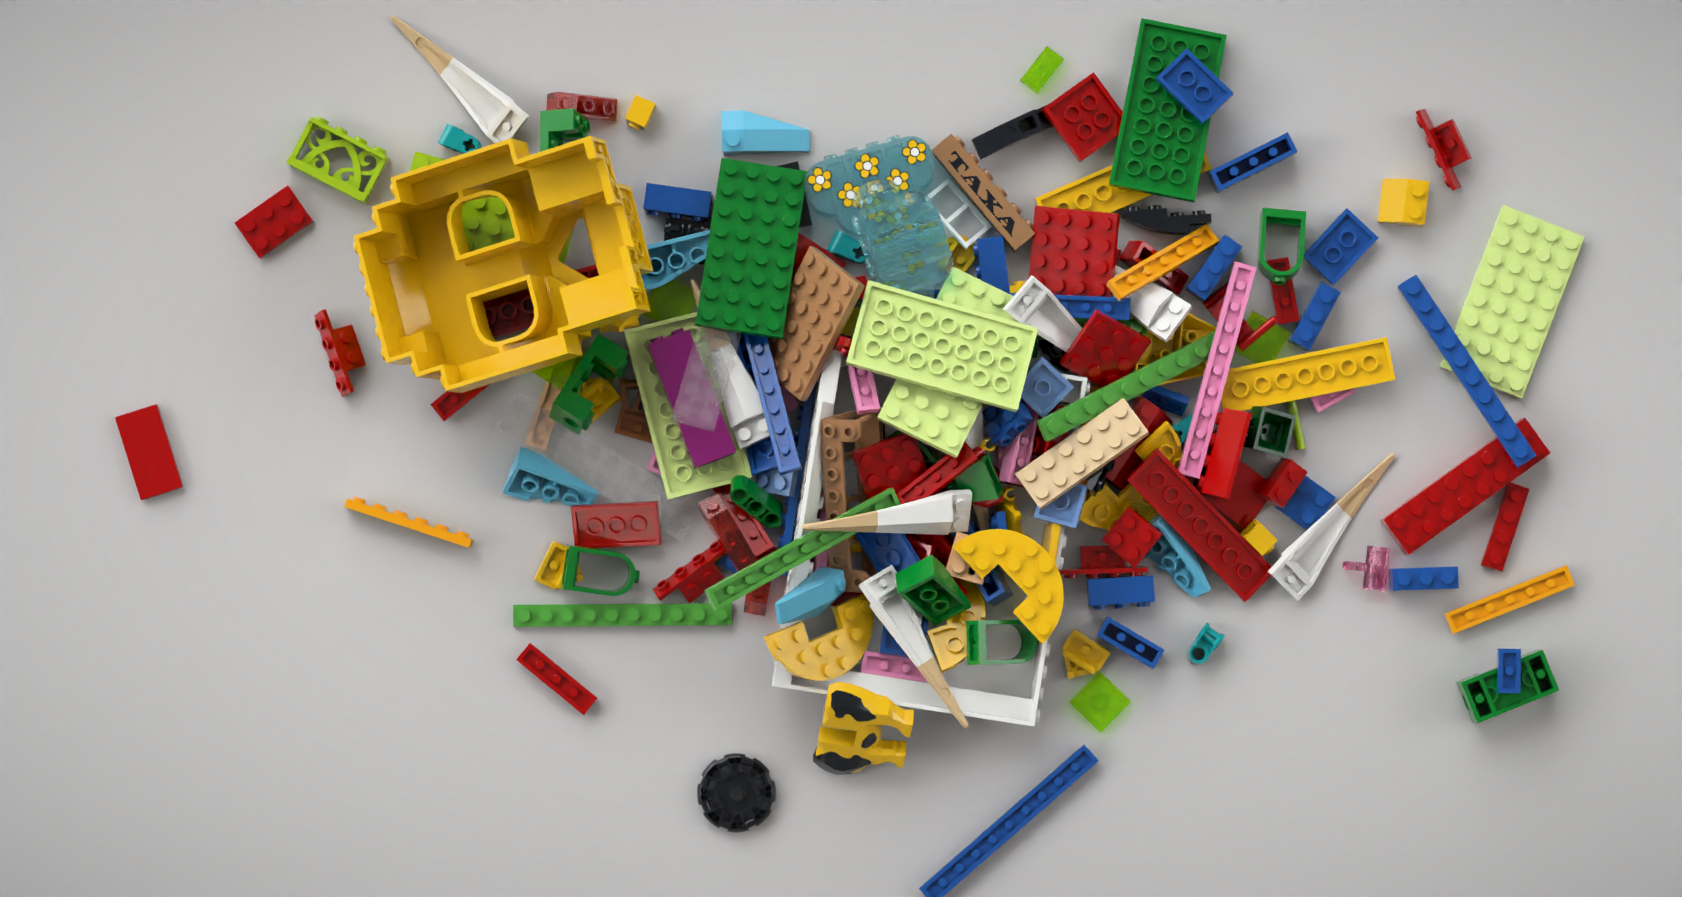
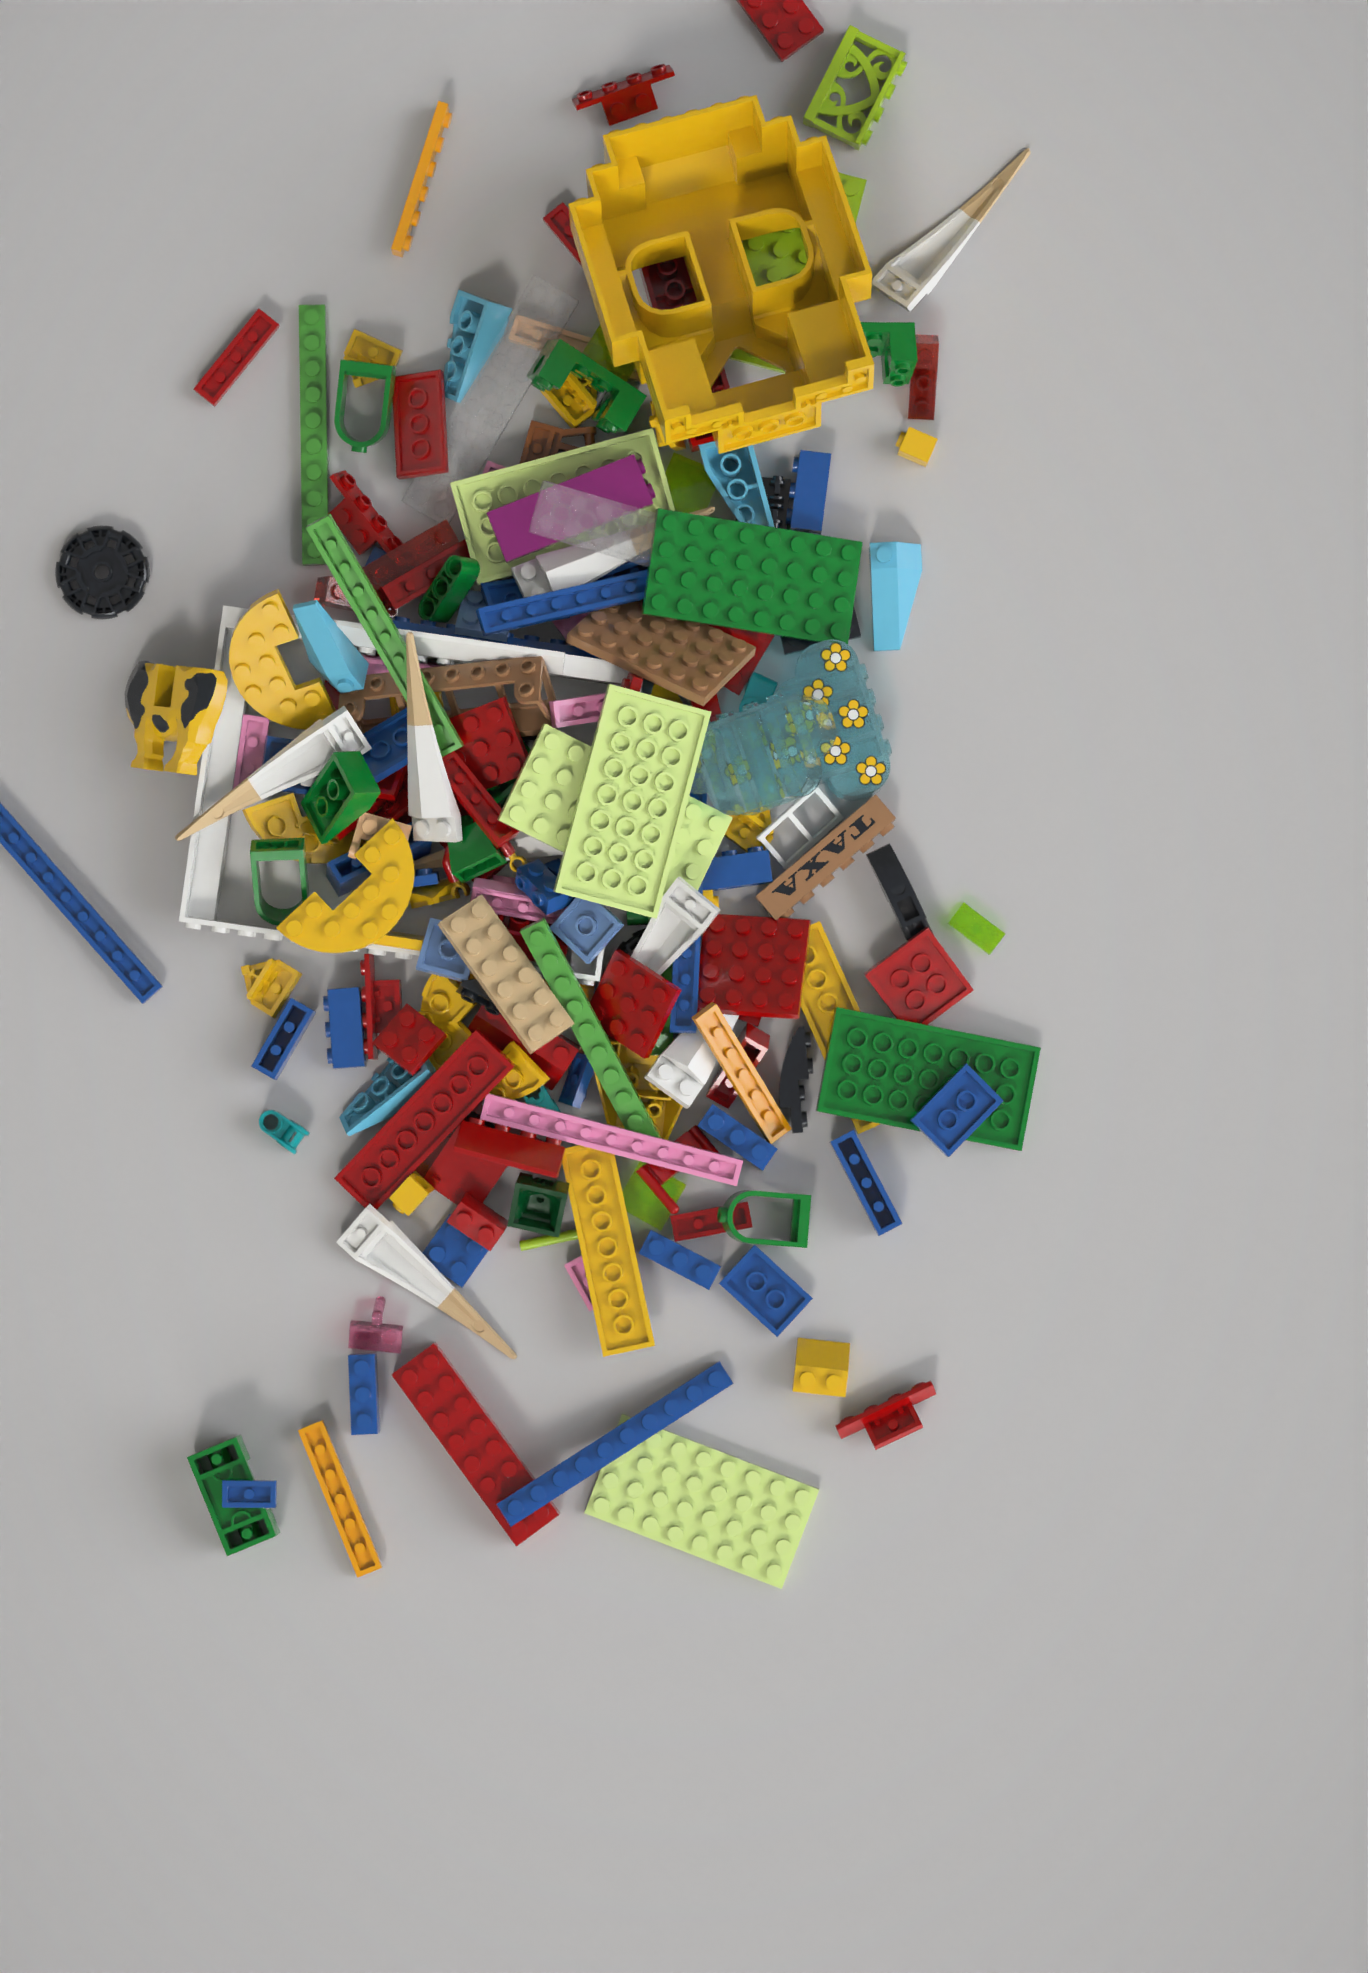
camera: 85 degrees right, 0 degrees up
(457, 139) = (880, 229): teal piece -> none
(1099, 701) = (213, 1005): clear neon green plate -> none
(1505, 526) = (428, 1493): red plate -> none

